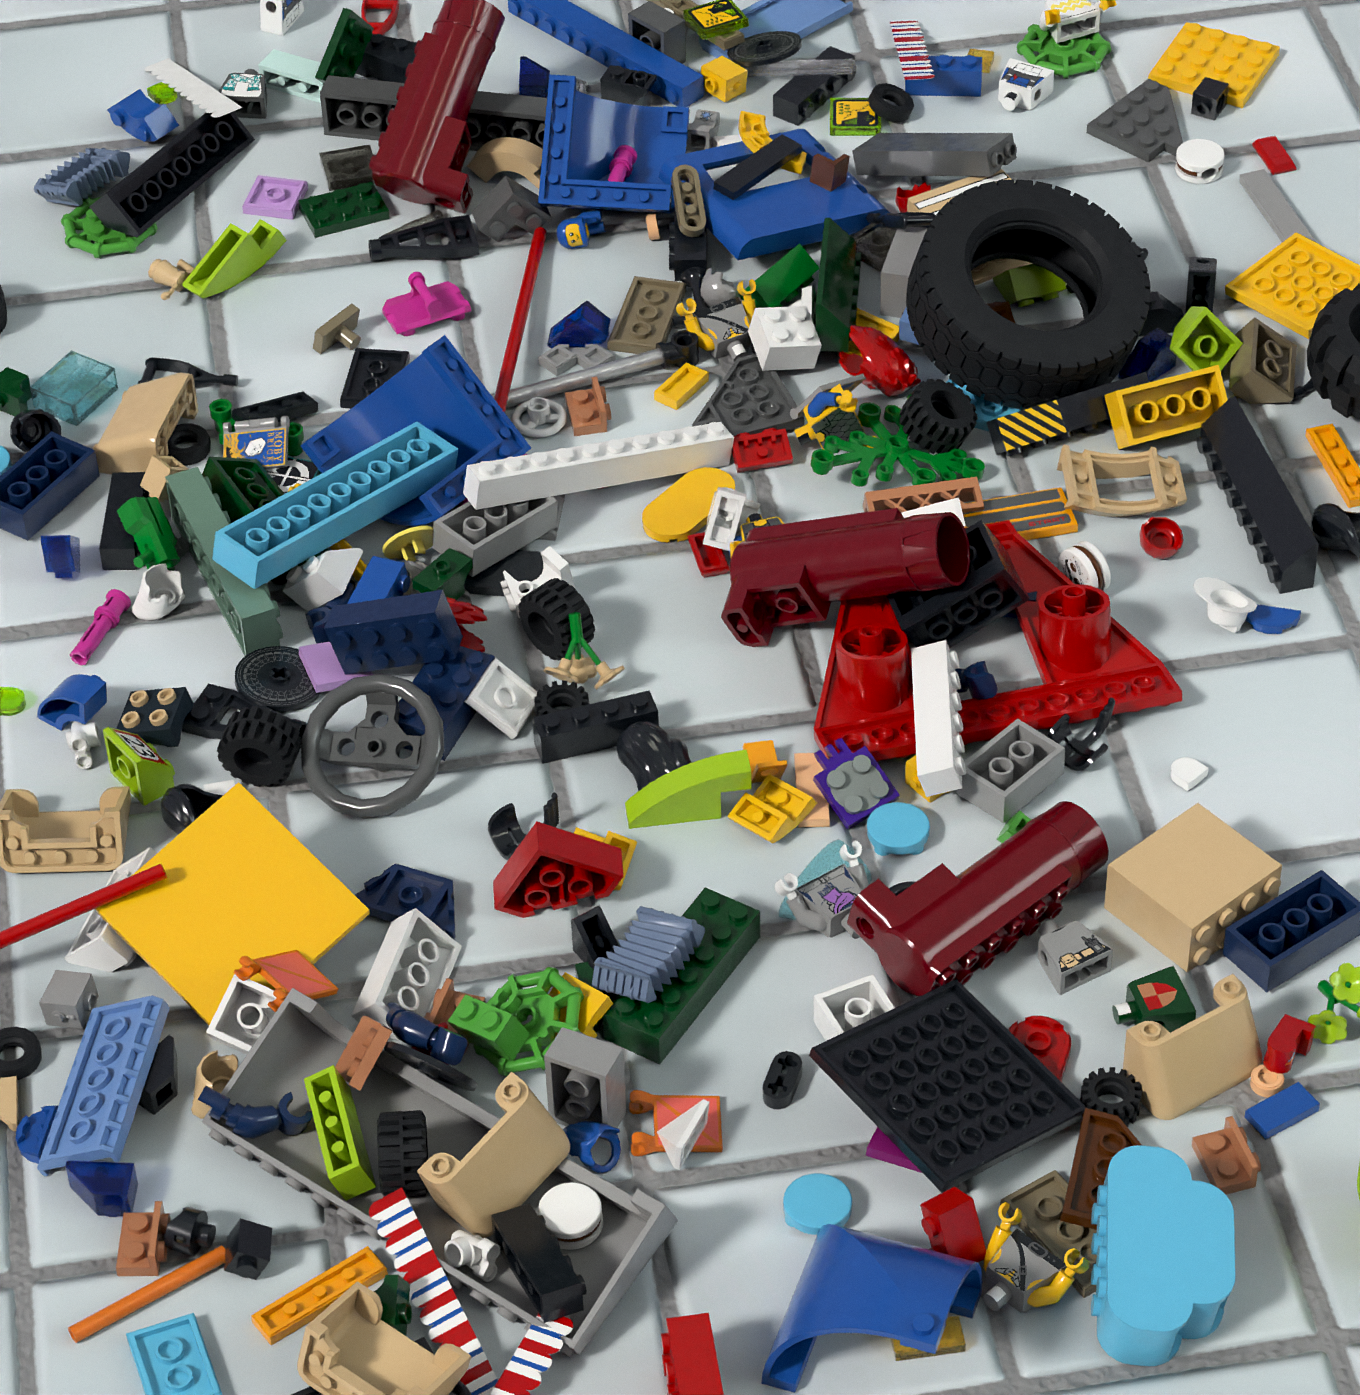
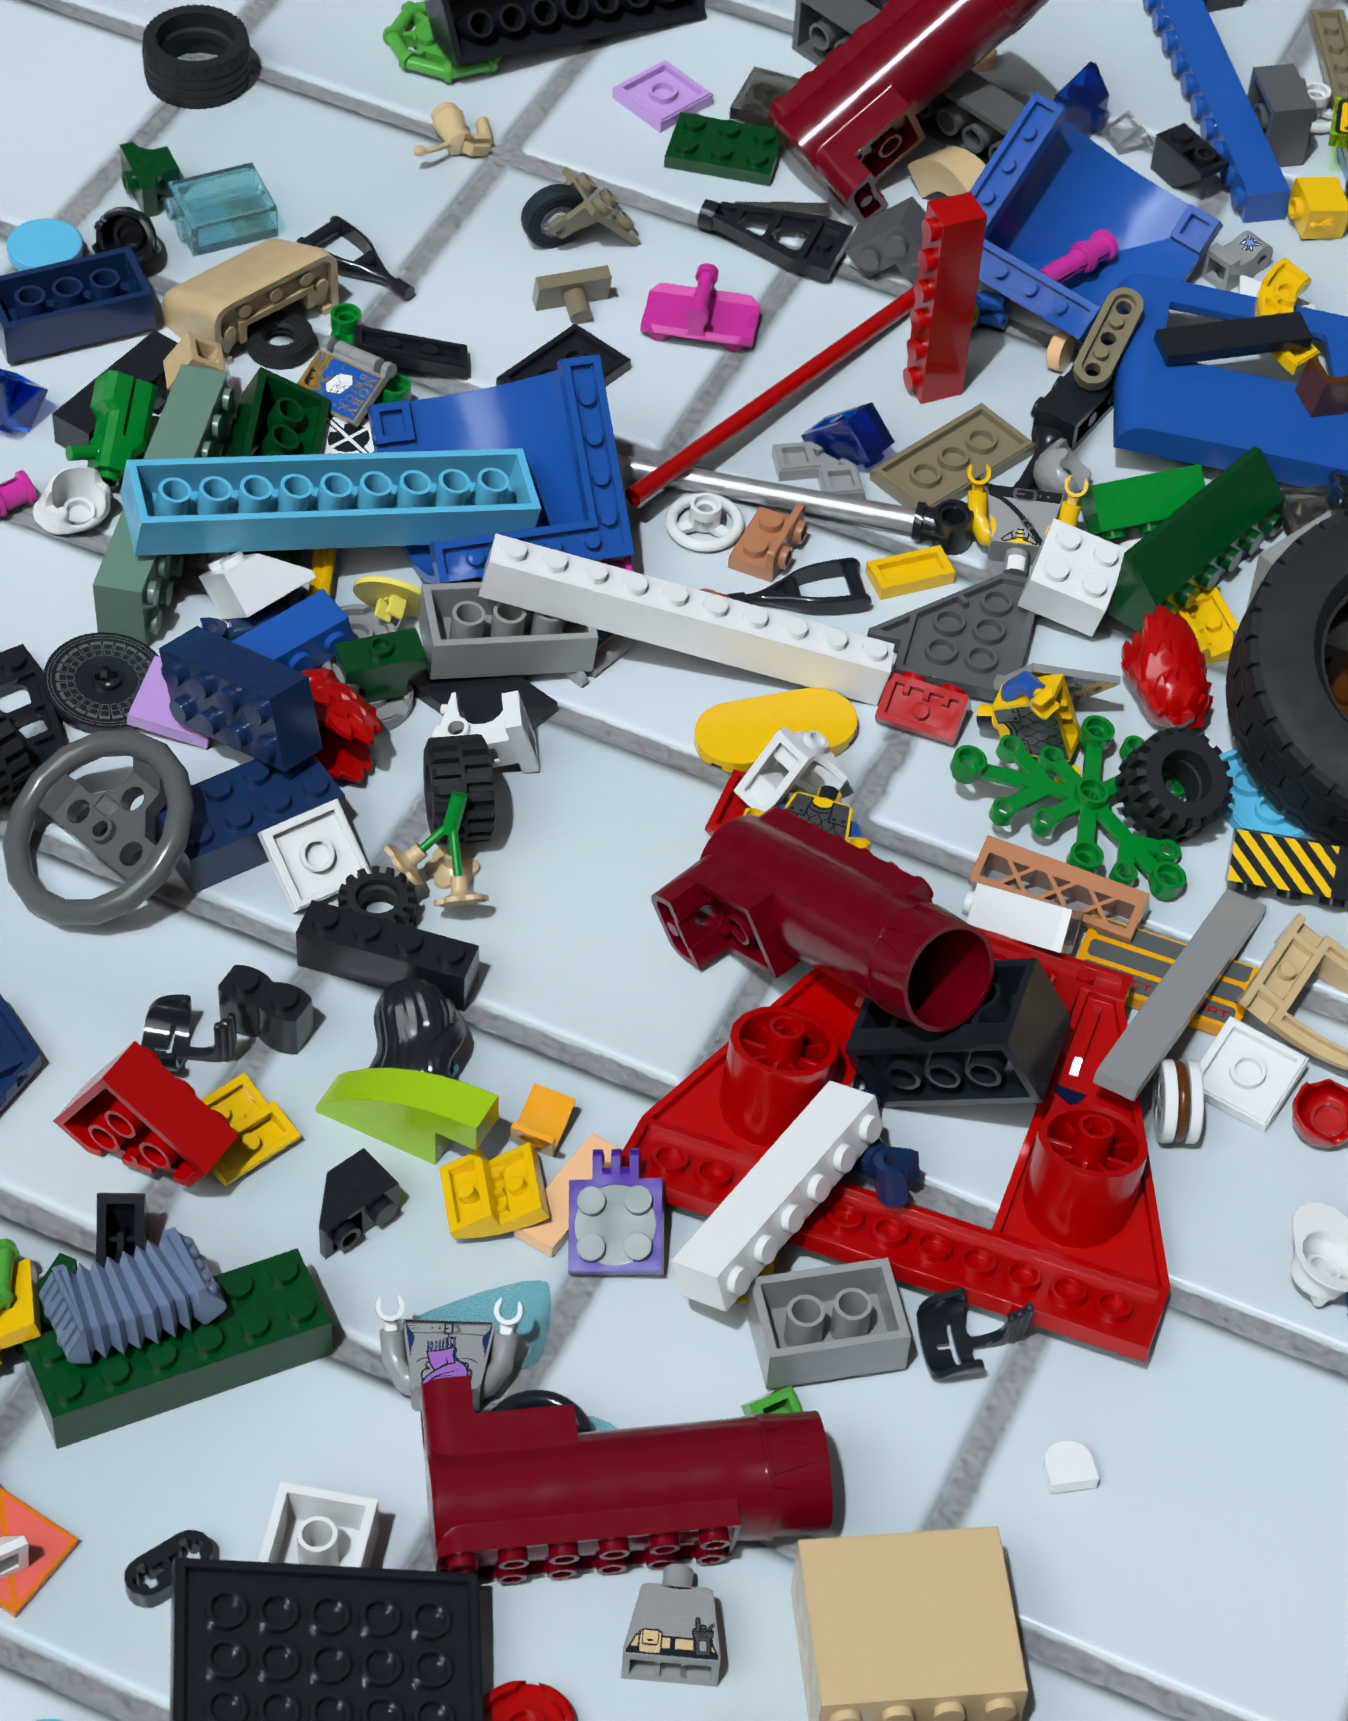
camera: 30 degrees right, 5 degrees up
(234, 258) = (536, 145): lime slope -> none
(295, 285) = (562, 210): none -> plate
(566, 781) = (267, 1009): none -> black brick
(591, 217) = (945, 297): none -> red brick
(666, 416) = (792, 599): none -> black piece
(701, 854) = (354, 1201): none -> black slope
(898, 829) = (623, 1315): medium azure tile -> none
(1040, 516) = (1179, 995): none -> light grey tile
(1109, 534) = (1249, 1073): none -> white tile

